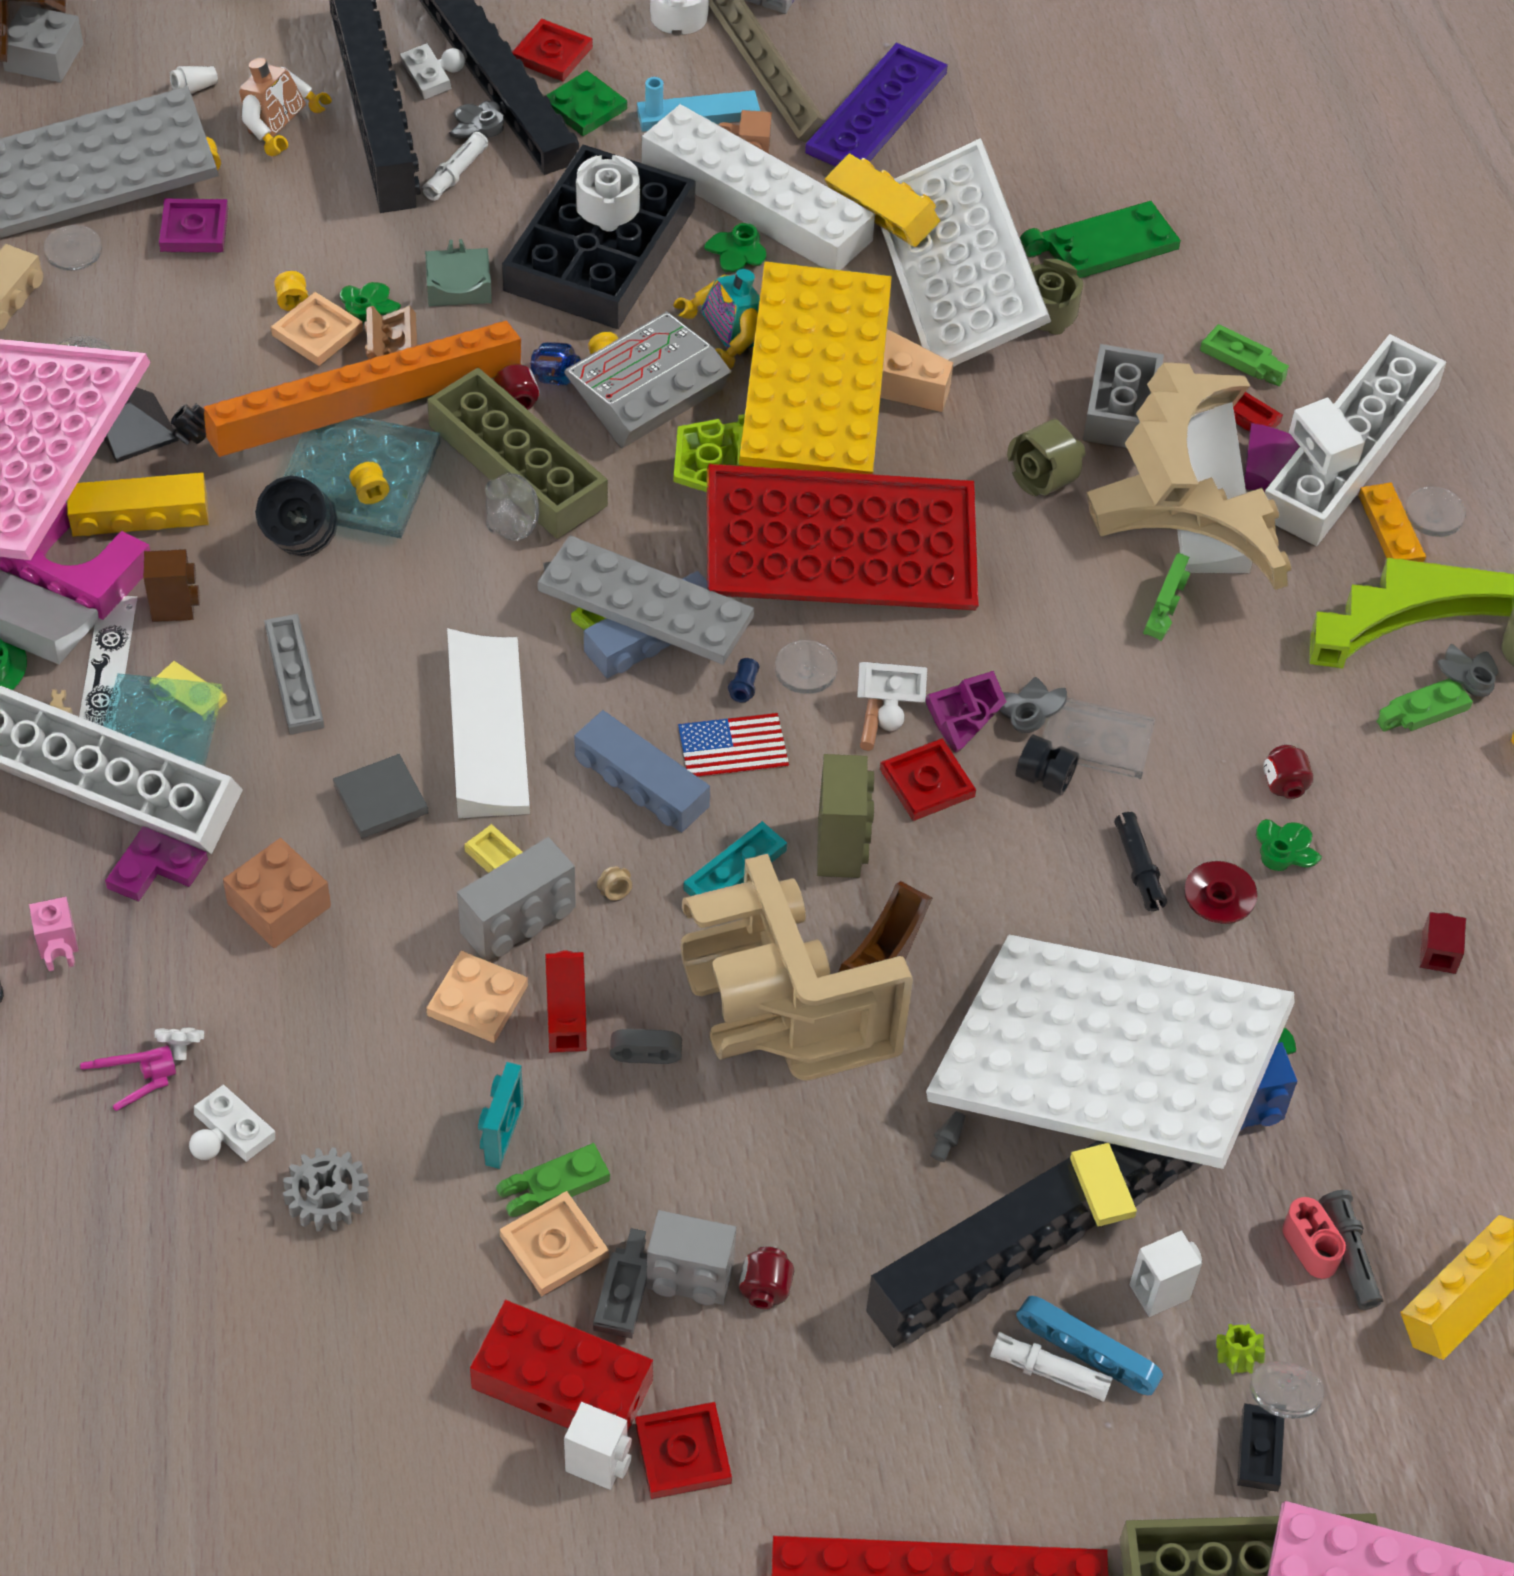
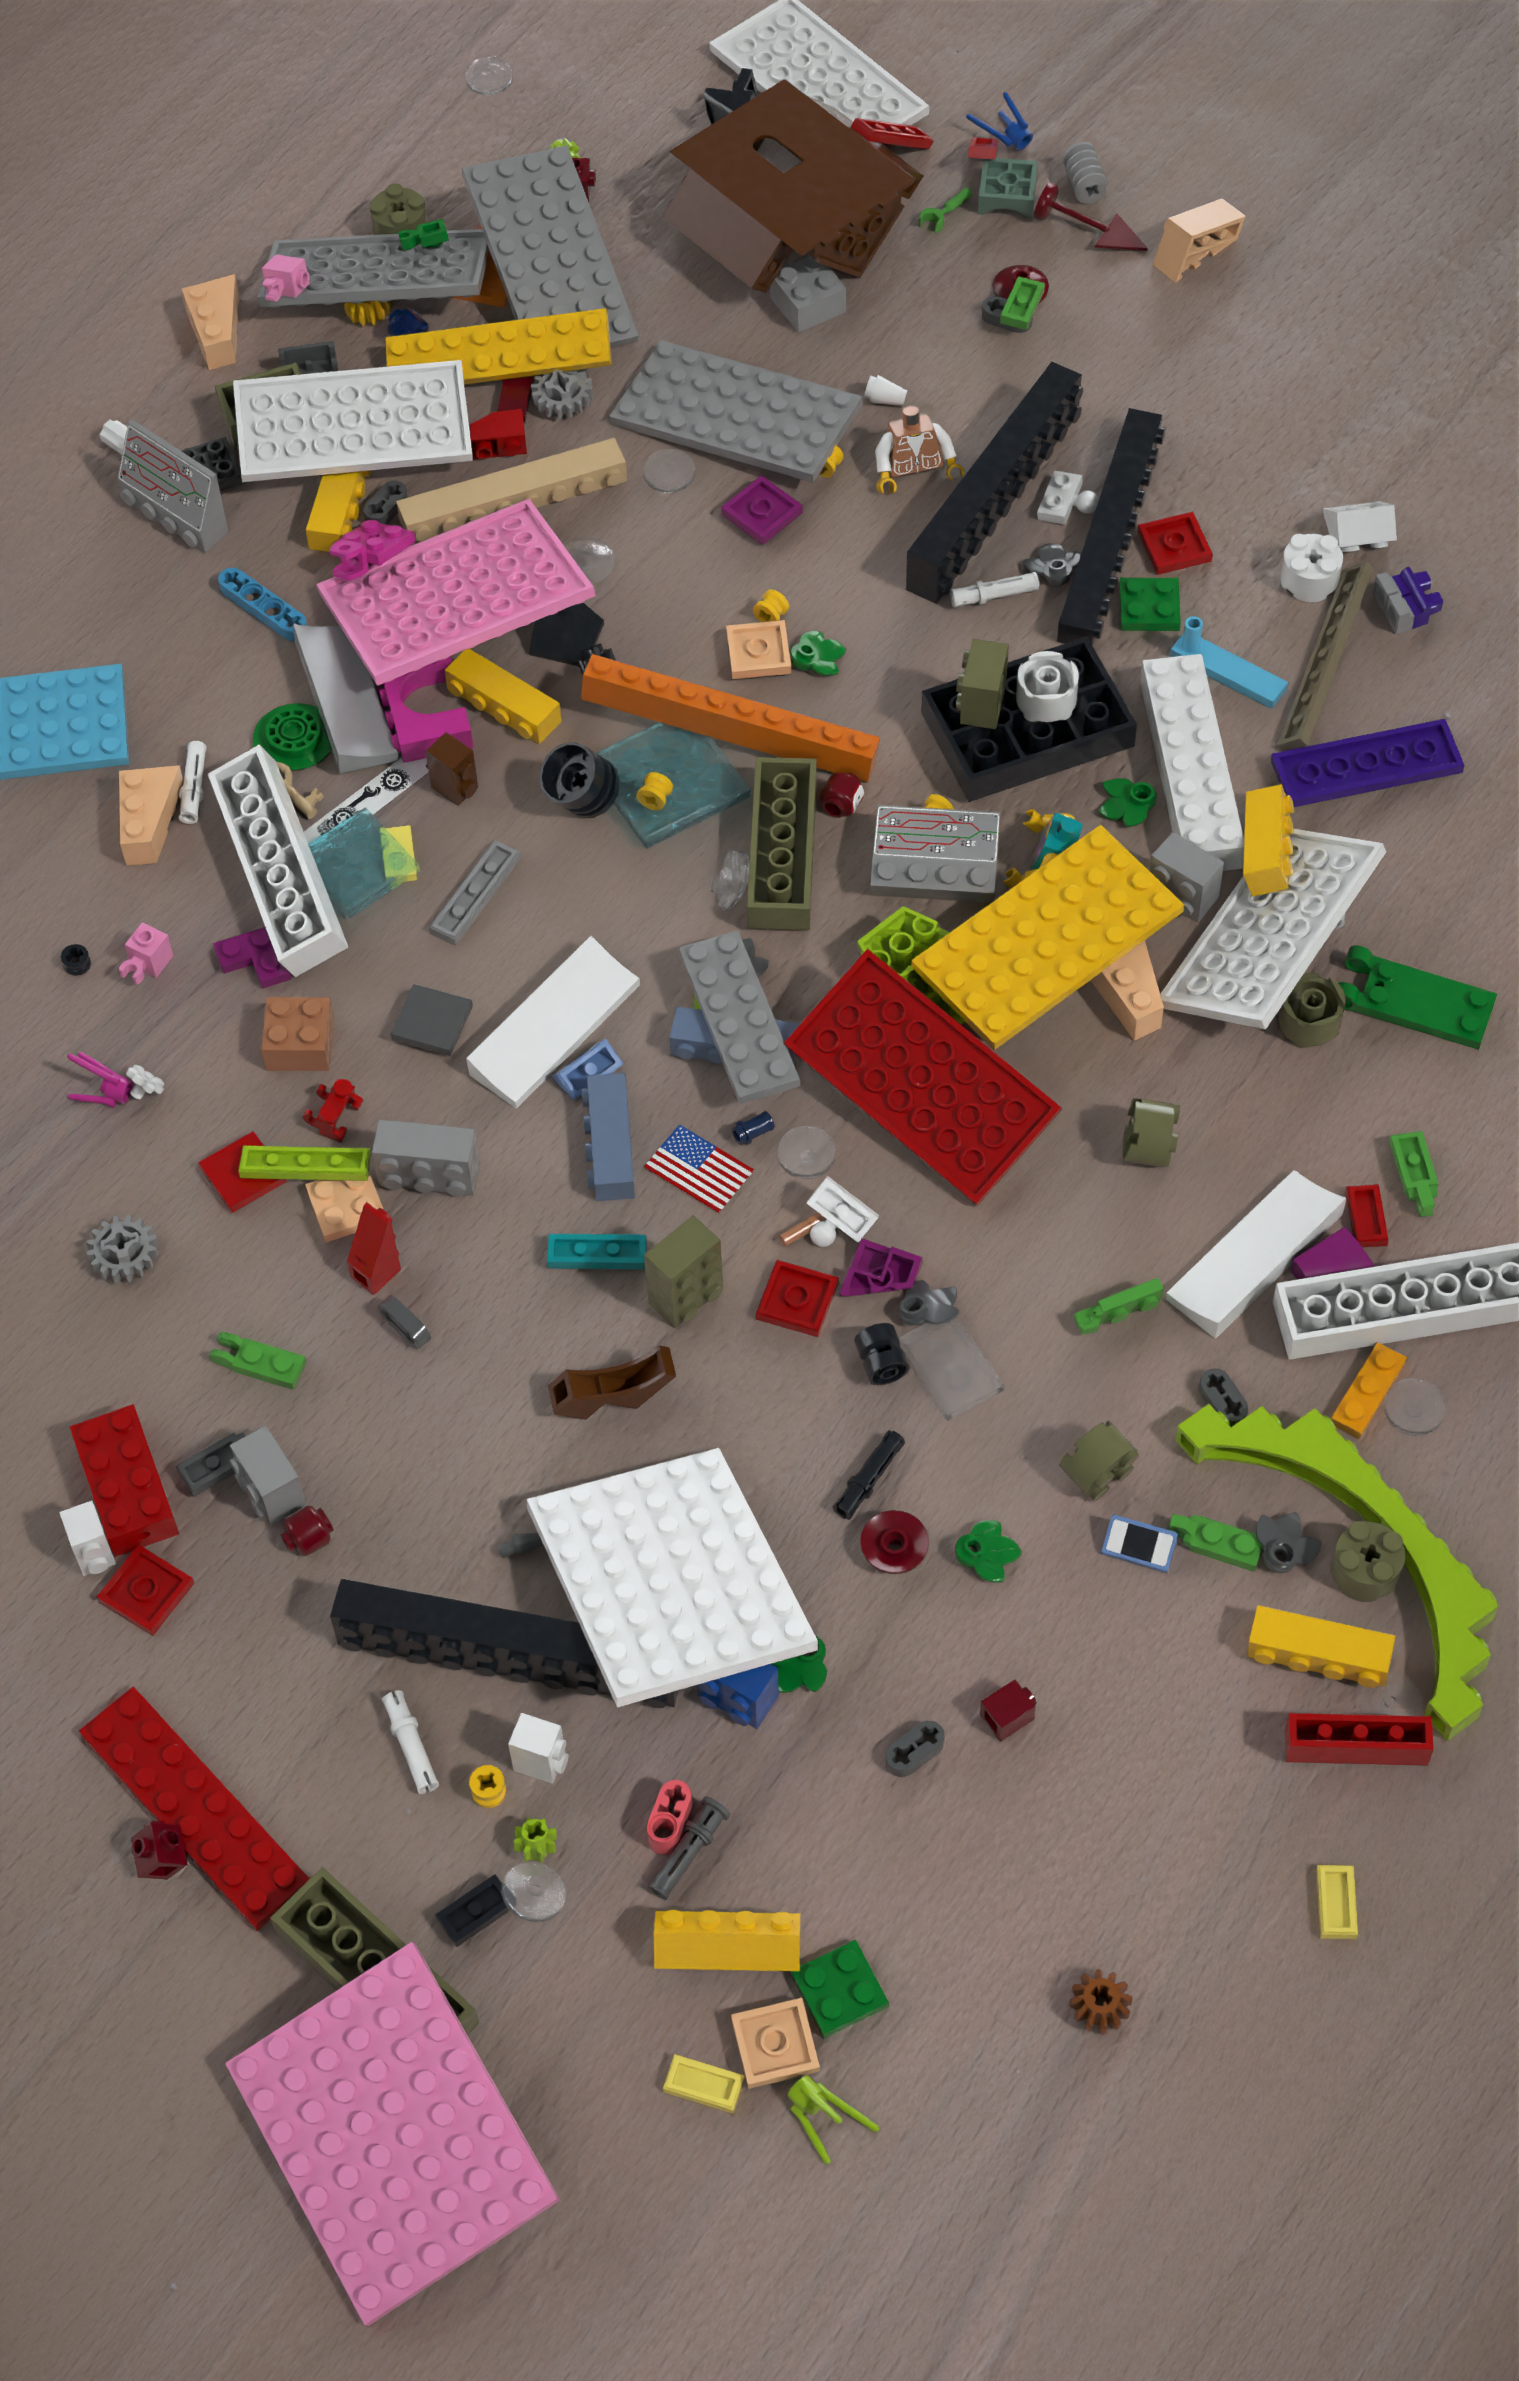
camera: 50 degrees right, 5 degrees up
(229, 1122) = (119, 1163): white plate -> none
(355, 1043) = (223, 1174): none -> red tile
(381, 929) = (336, 1101): none -> red piece
(390, 332) = (799, 689): medium nougat bracket -> none
(411, 988) = (305, 1163): none -> lime tile
(458, 276) = (900, 678): sand green piece -> none
(491, 848) = (463, 1112): light yellow tile -> none
(502, 1116) = (262, 1289): teal plate -> none
(551, 361) = (888, 790): clear blue head -> none
(554, 737) = (595, 1061): none -> medium blue slope
(554, 1243) = (212, 1398): light nougat plate -> none
(560, 218) = (982, 683): none -> olive brick
(615, 883) = (509, 1198): tan plate -> none
(753, 128) = (1240, 717): nougat brick -> none
(781, 989) = (501, 1341): tan piece -> none
(856, 250) = (1189, 874): none -> light grey brick
(1089, 1345) = (447, 1751): dark azure beam -> none
(1103, 1184) = (543, 1651): light yellow tile -> none
(1118, 393) = (1269, 1131): light grey brick -> none
(1143, 1344) = (488, 1794): none -> yellow wheel
(1161, 436) = (1257, 1166): tan arch -> none
(1240, 522) = (1195, 1230): tan arch -> none
(1288, 771) = (1050, 1501): dark red head -> none
(1293, 710) = (1099, 1459): none -> olive brick
(1307, 604) = (1229, 1395): none -> dark grey beam
(1326, 437) = (1366, 1277): white brick -> none
(1379, 751) = (1139, 1543): none -> slope
(1420, 1029) = (910, 1742): none -> dark grey beam

